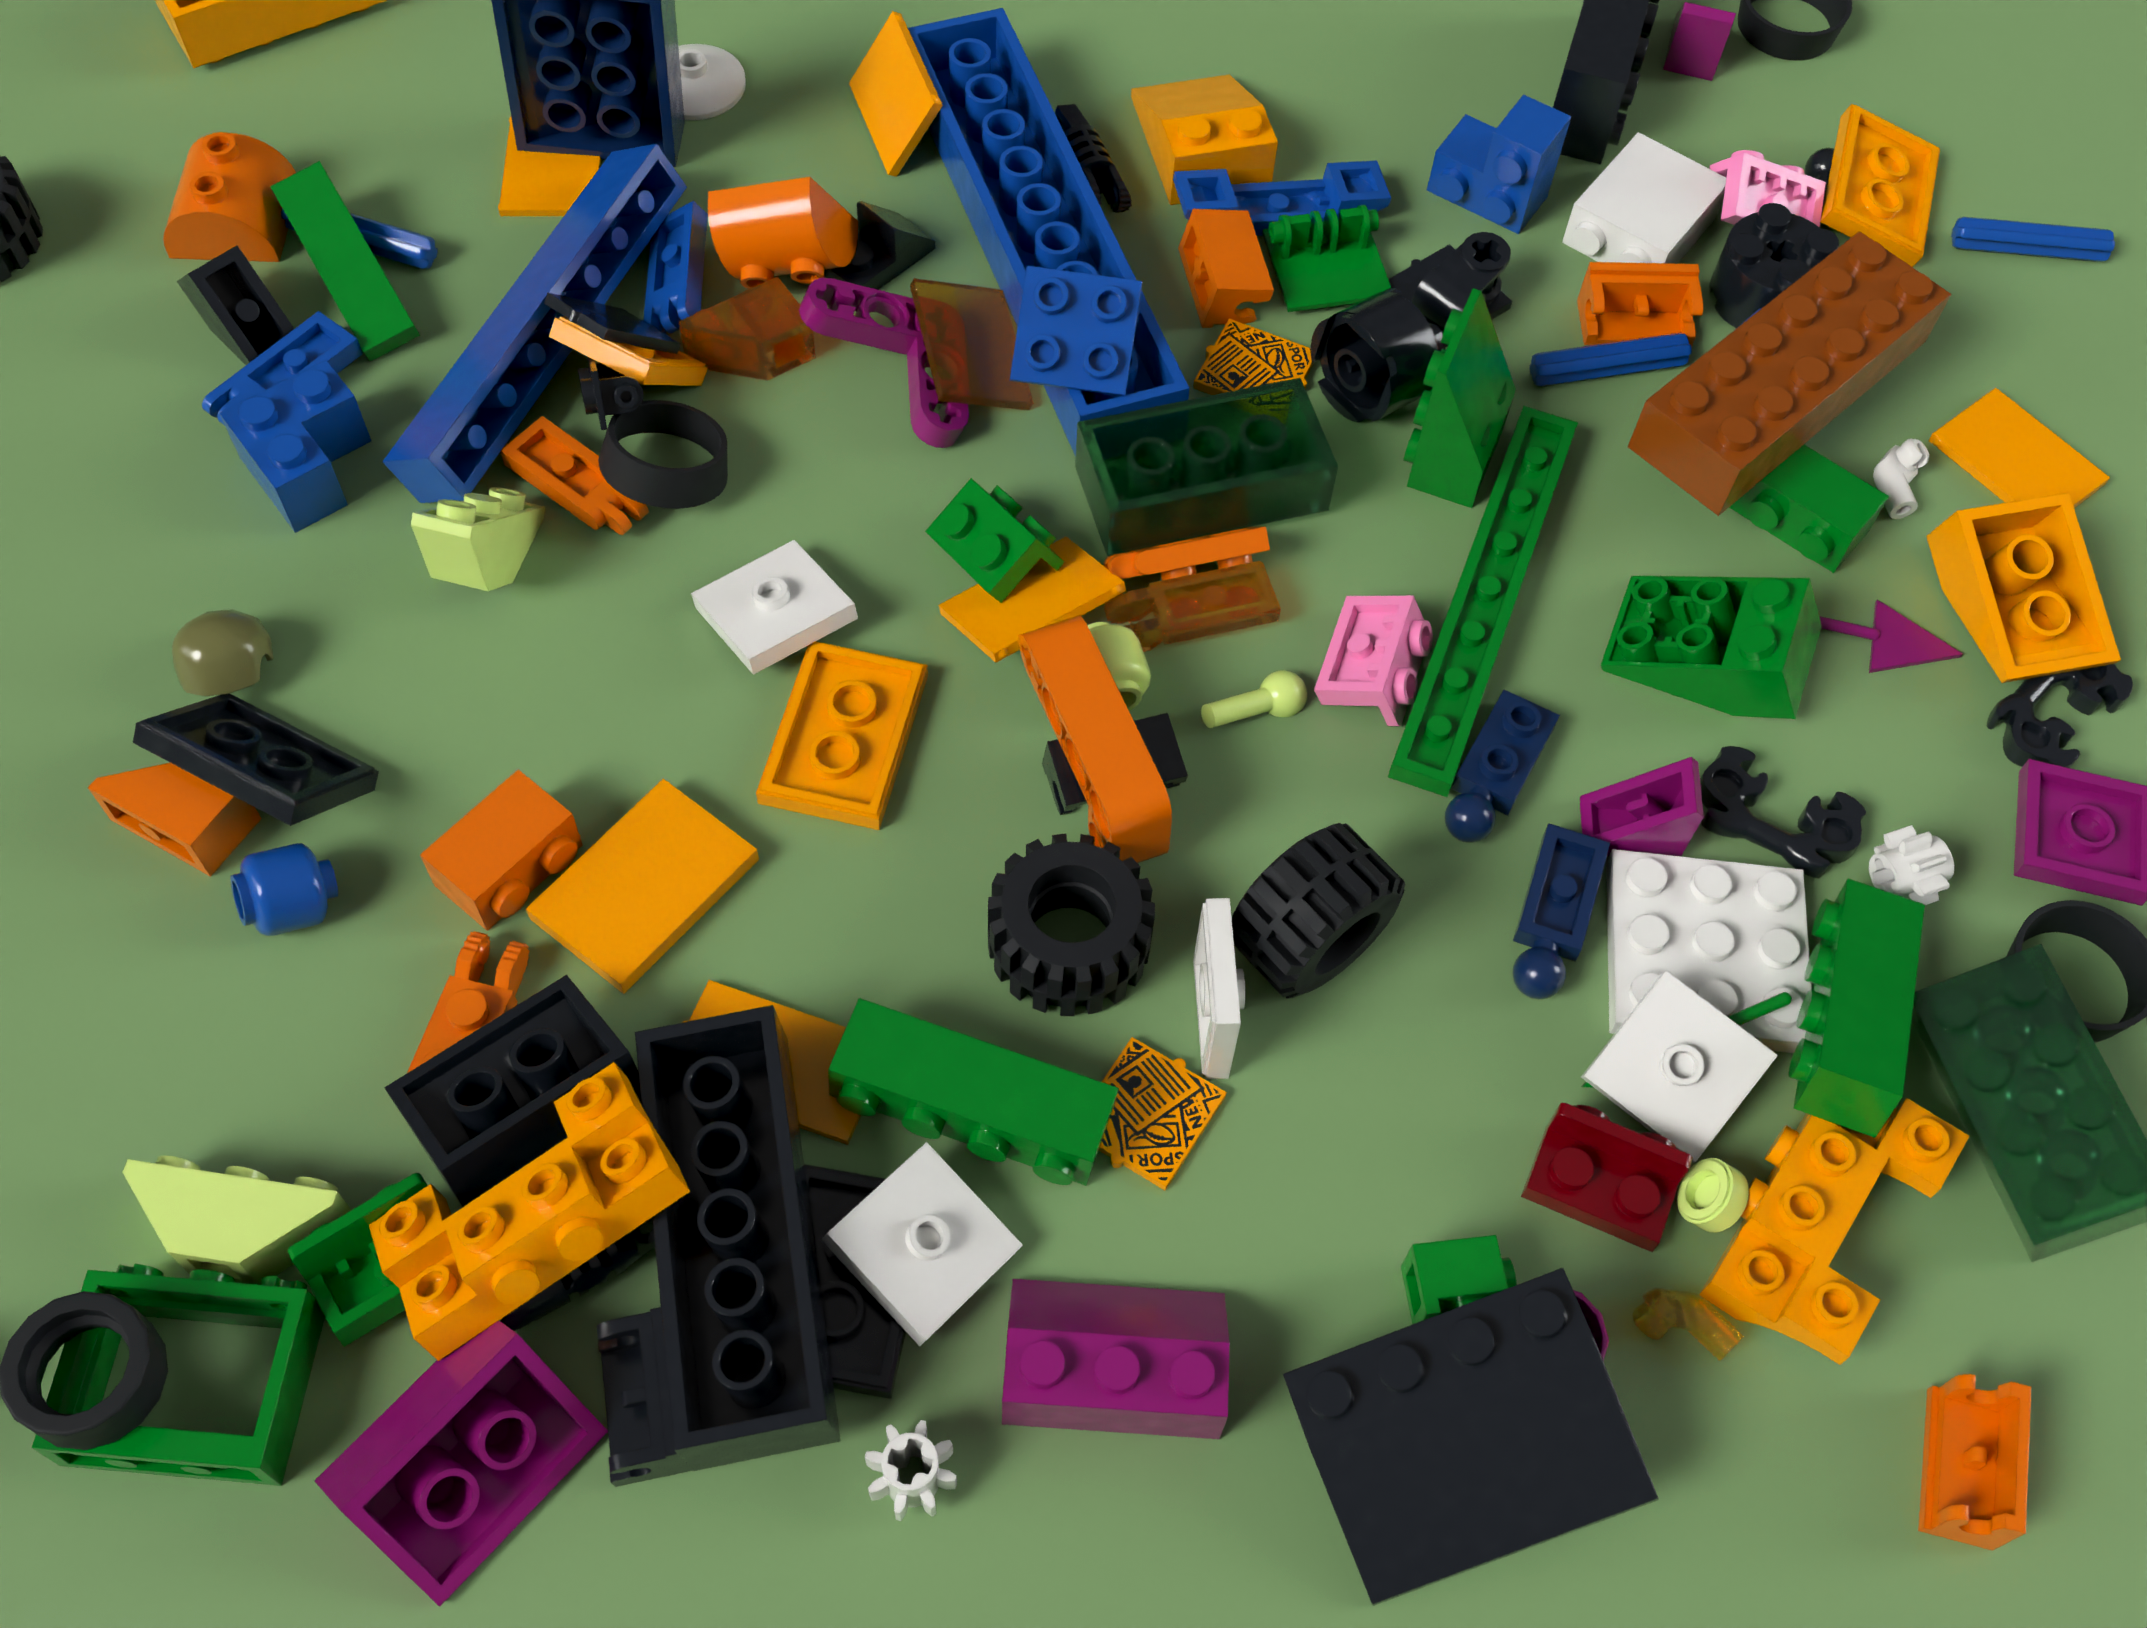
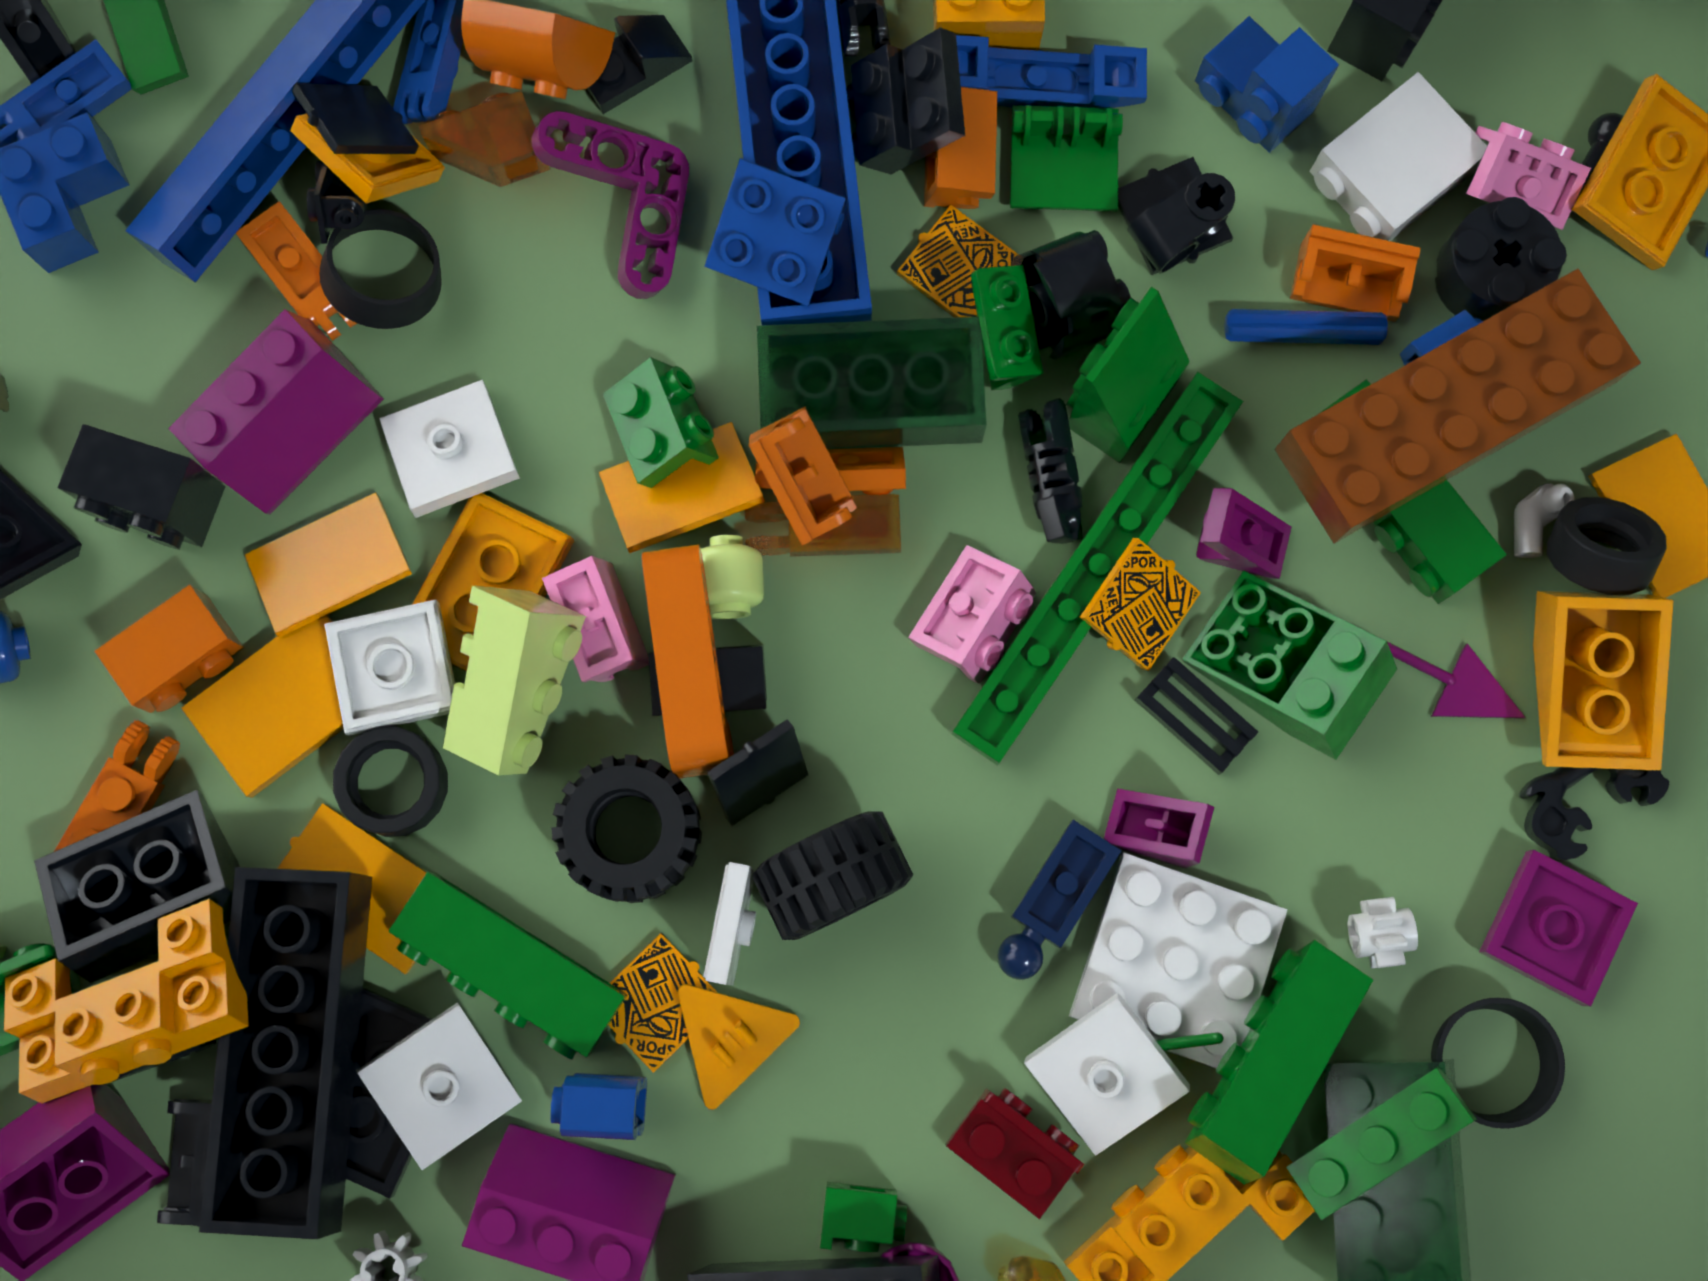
camera: 15 degrees right, 20 degrees up
(446, 685) = (141, 488): none -> black brick
(478, 538) = (201, 328): yellowish green slope -> none
(581, 595) = (276, 412): none -> magenta slope
(664, 739) = (327, 564): none -> light orange piece
(763, 817) = (391, 667): none -> white plate
(775, 893) = (349, 767): none -> black tyre
(907, 785) = (510, 678): none -> yellowish green wedge
(969, 344) = (686, 188): clear orange piece -> none
(977, 730) = (609, 630): none -> bright pink hinge
(1125, 1210) = (600, 1106): none -> blue brick
(1162, 541) = (802, 475): none -> orange hinge
(1169, 226) = (906, 102): none -> black plate
(1200, 834) = (758, 772): none -> black piece
(1242, 1130) = (730, 1038): none -> light orange piece
(1279, 695) = (881, 628): yellowish green bar -> none
(1329, 386) = (1006, 325): none -> green bracket
(1412, 518) = (1053, 471): none -> black hinge
(1498, 766) = (1052, 745): dark blue plate -> none
(1542, 616) = (1140, 604): none -> light orange piece
(1617, 536) = (1243, 535): none -> magenta slope
(1639, 704) = (1210, 700): none -> black tile
(1712, 1195) = (1097, 1191): yellowish green tile -> none
(1828, 834) = (1328, 876): black helmet -> none
(1978, 473) = (1602, 568): none -> black tyre
(2009, 1040) = (1381, 1143): none -> green plate

